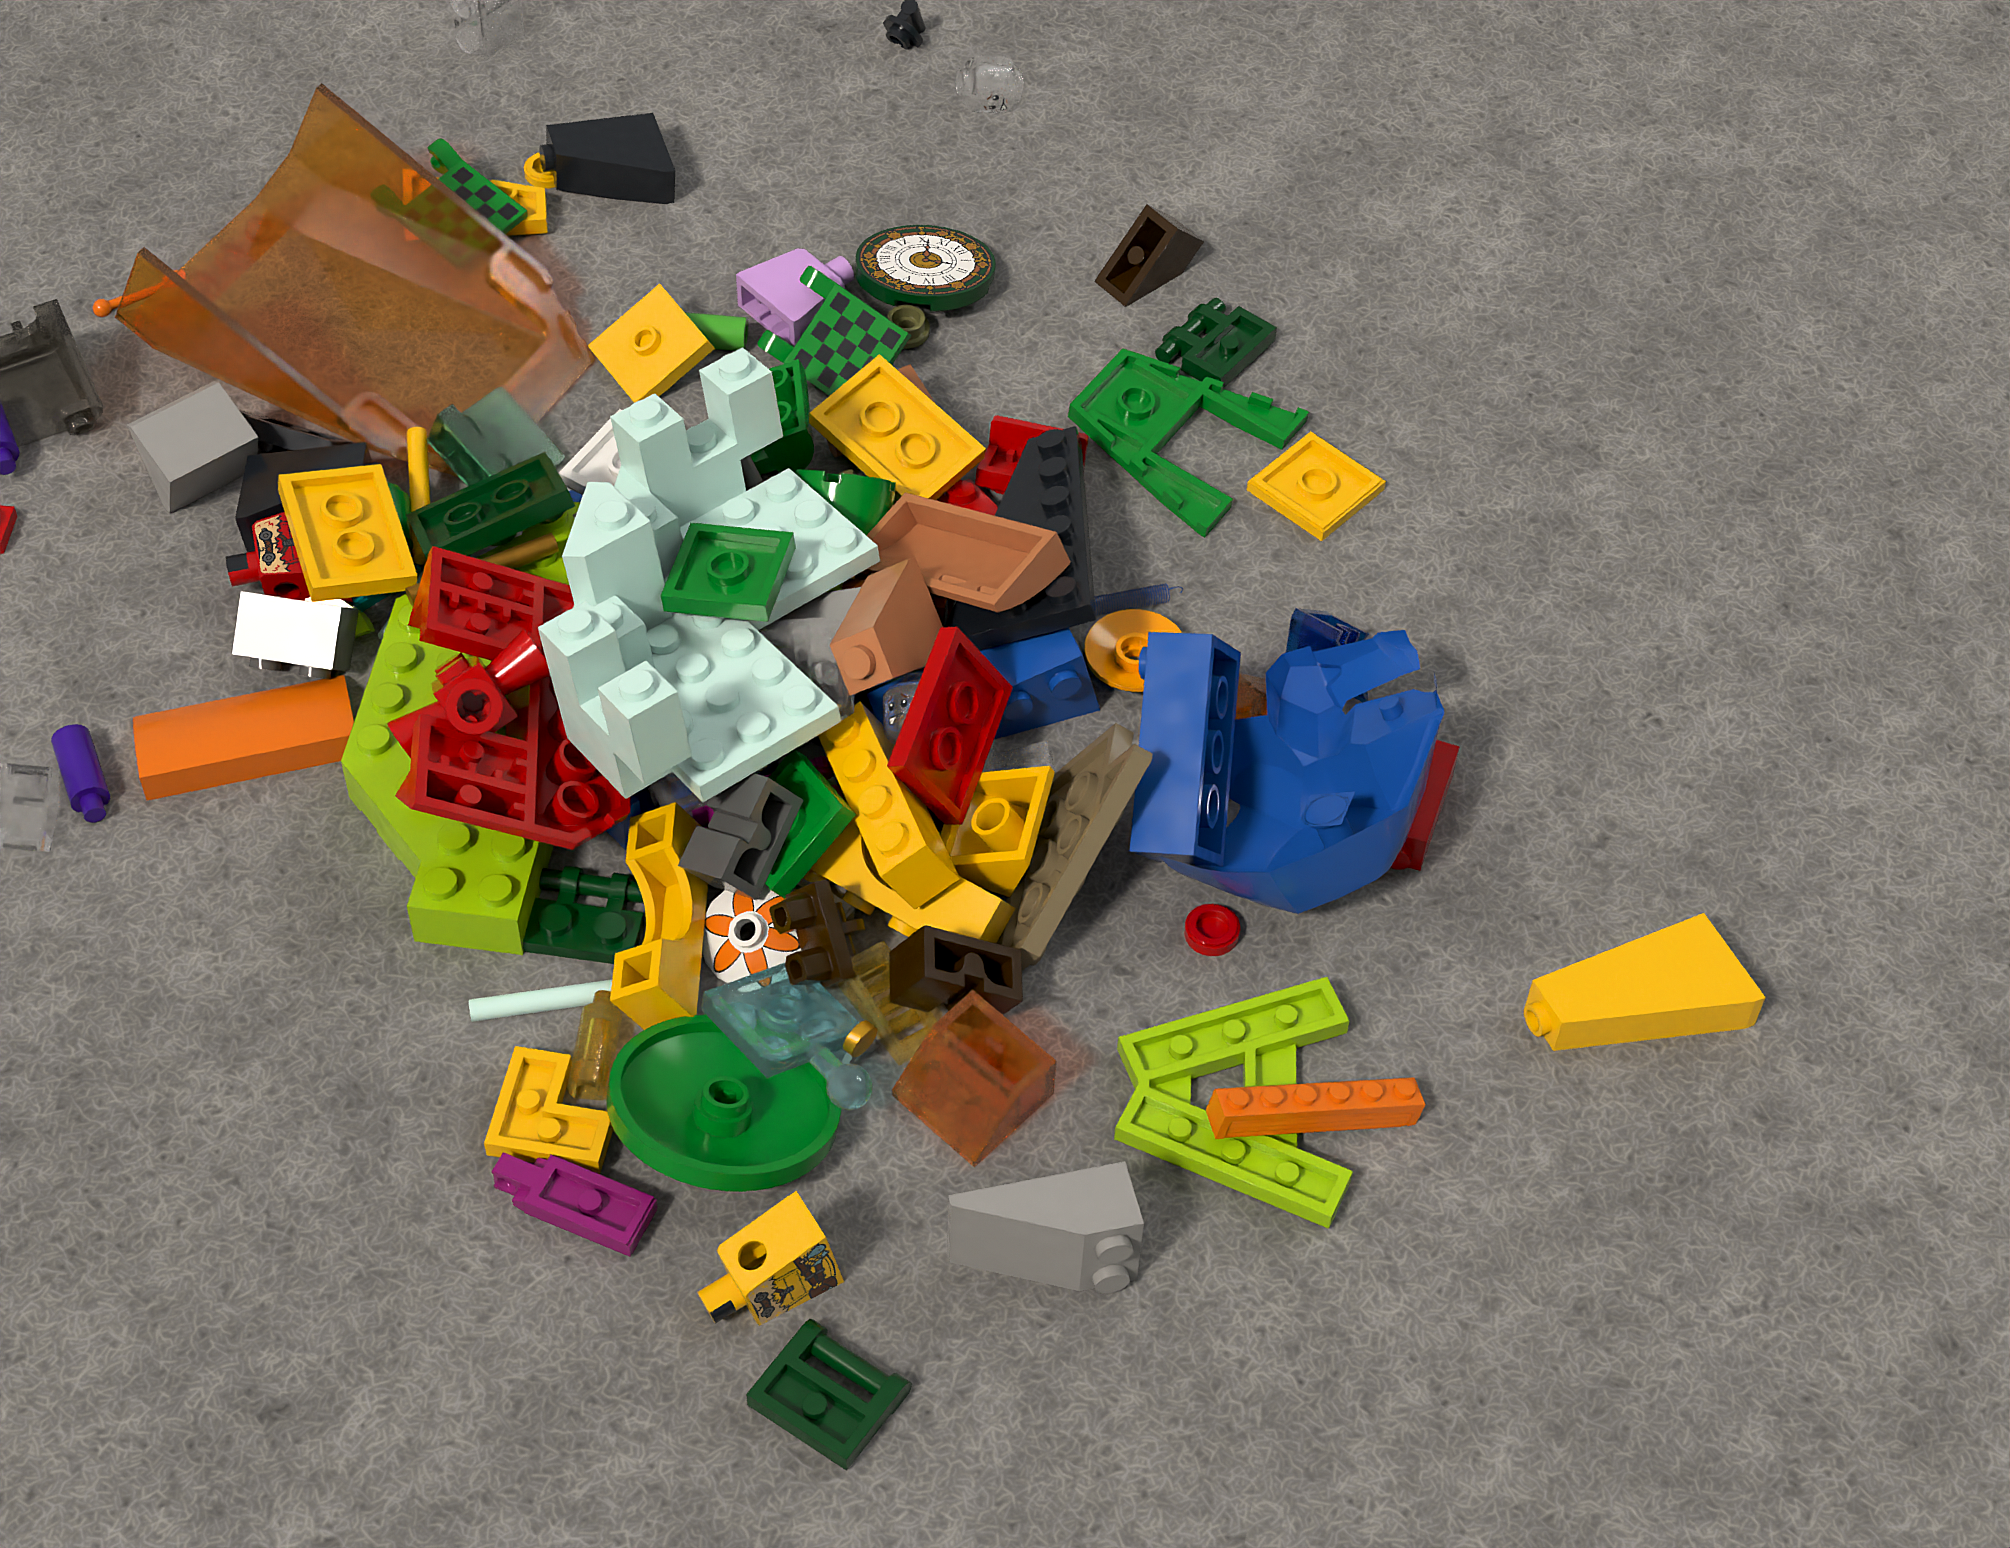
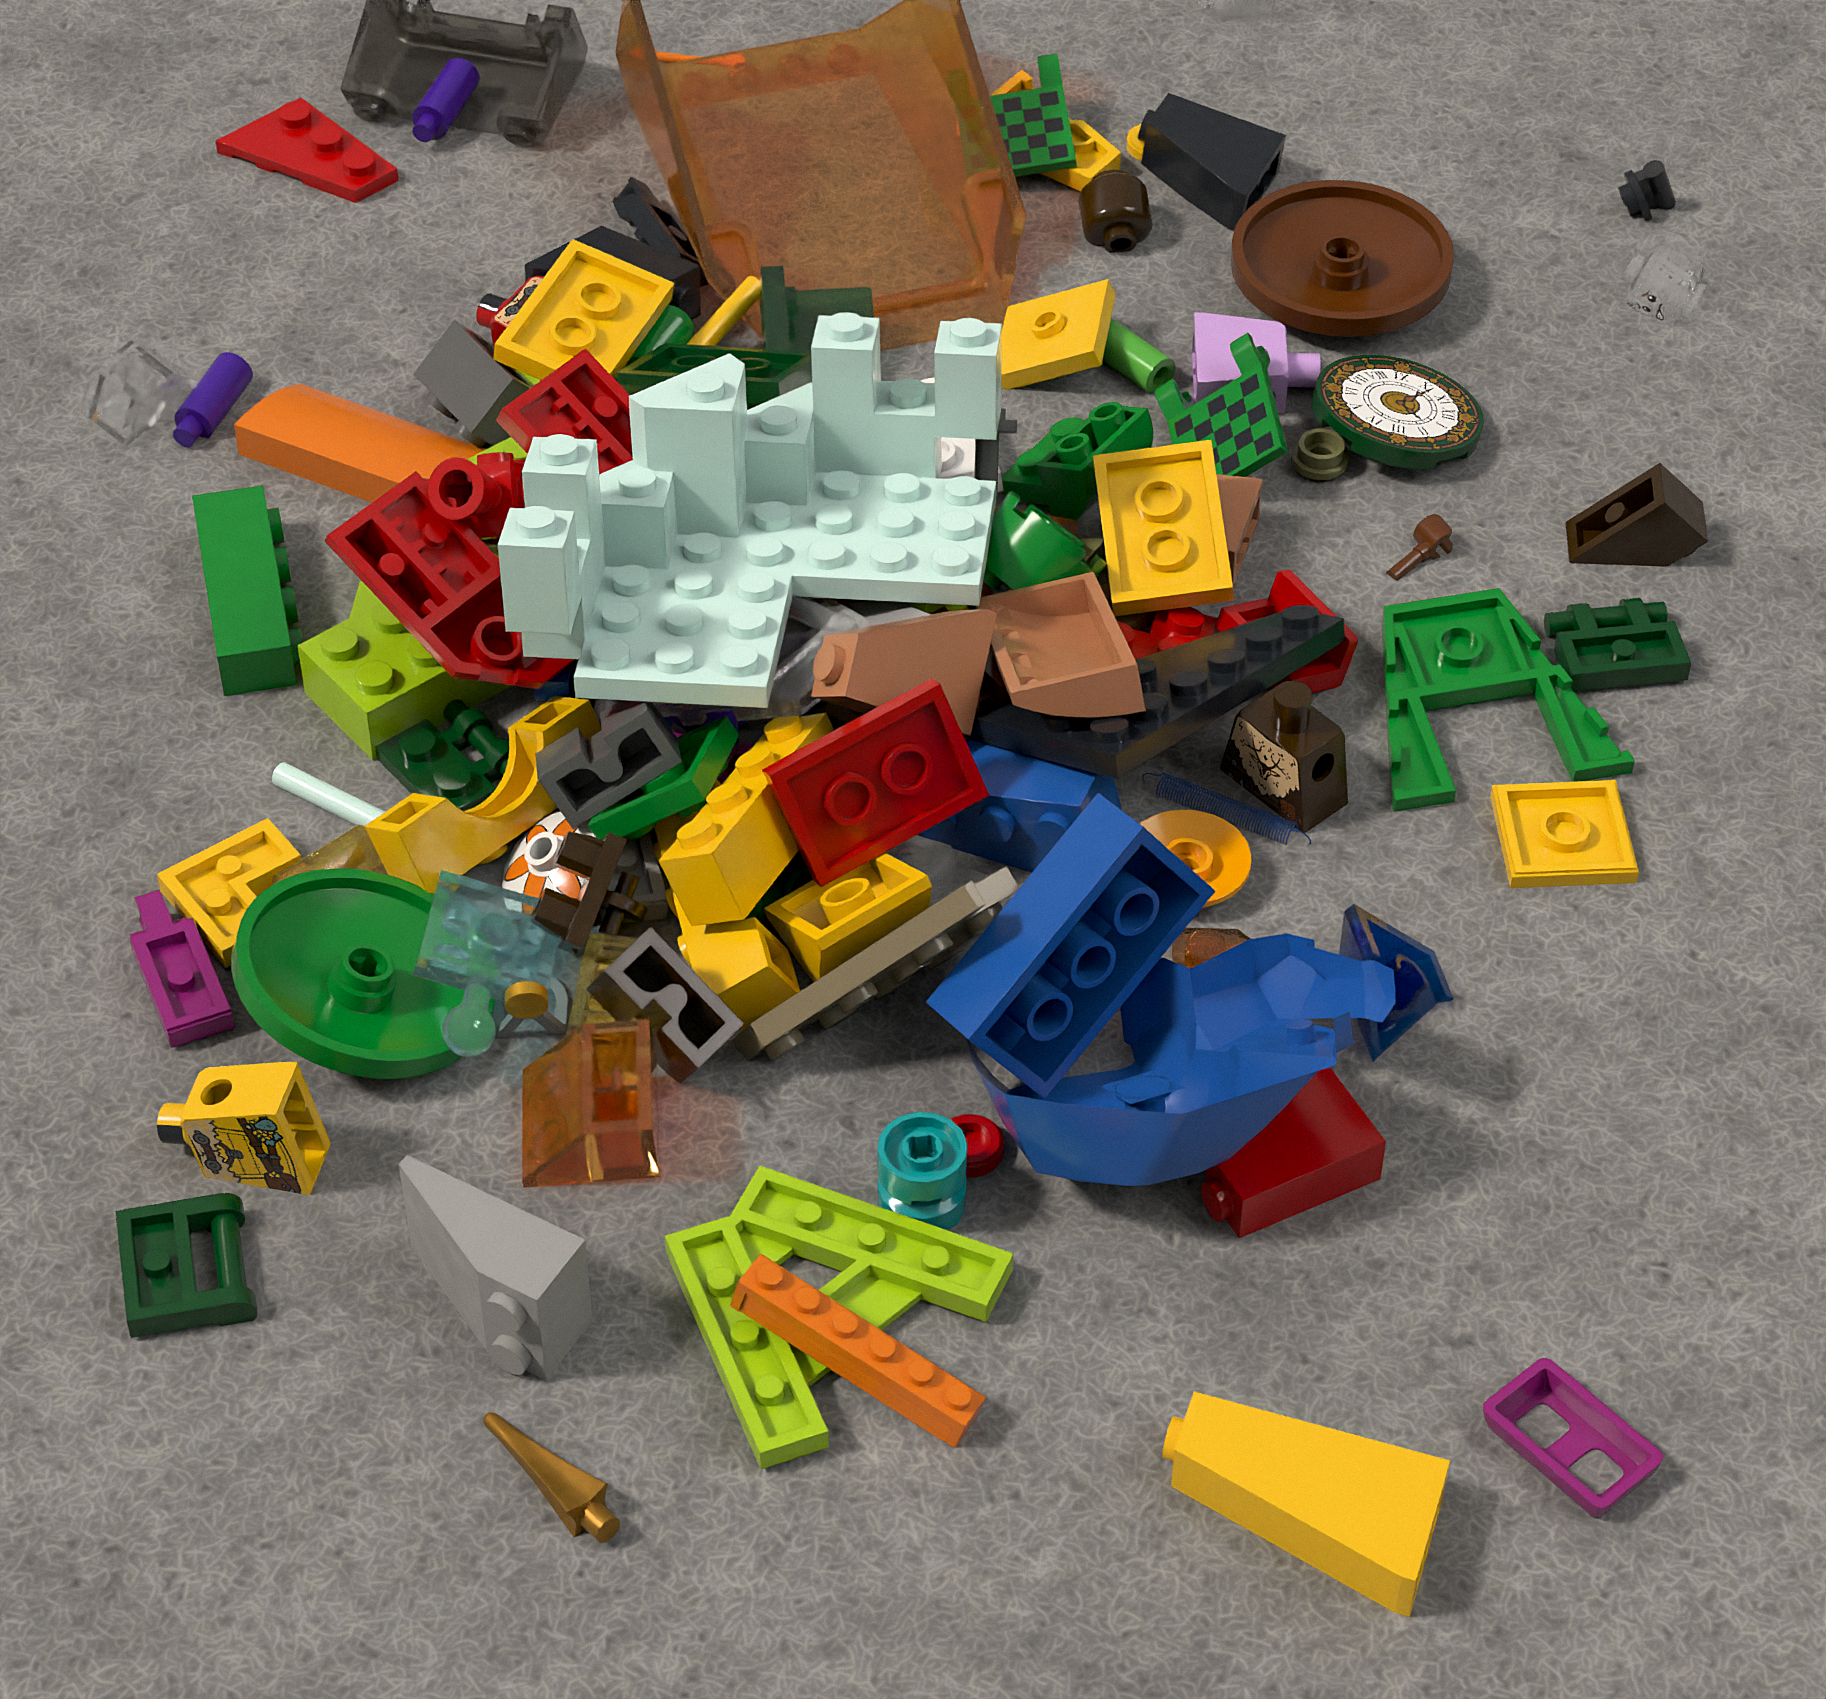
camera: 45 degrees right, 5 degrees down
(194, 445) = (563, 189): light grey slope -> none
(292, 895) = (245, 590): none -> green brick
(588, 233) = (1116, 210): none -> dark brown head
(728, 572) = (807, 520): green plate -> none
(779, 180) = (1341, 258): none -> reddish brown dish
(1035, 341) = (1428, 534): none -> reddish brown hand
(1130, 538) = (1289, 756): none -> dark brown torso
(1224, 963) = (923, 1169): none -> teal wheel
(1240, 1335) = (569, 1490): none -> pearl gold piece
(1722, 839) = (1590, 1428): none -> magenta piece

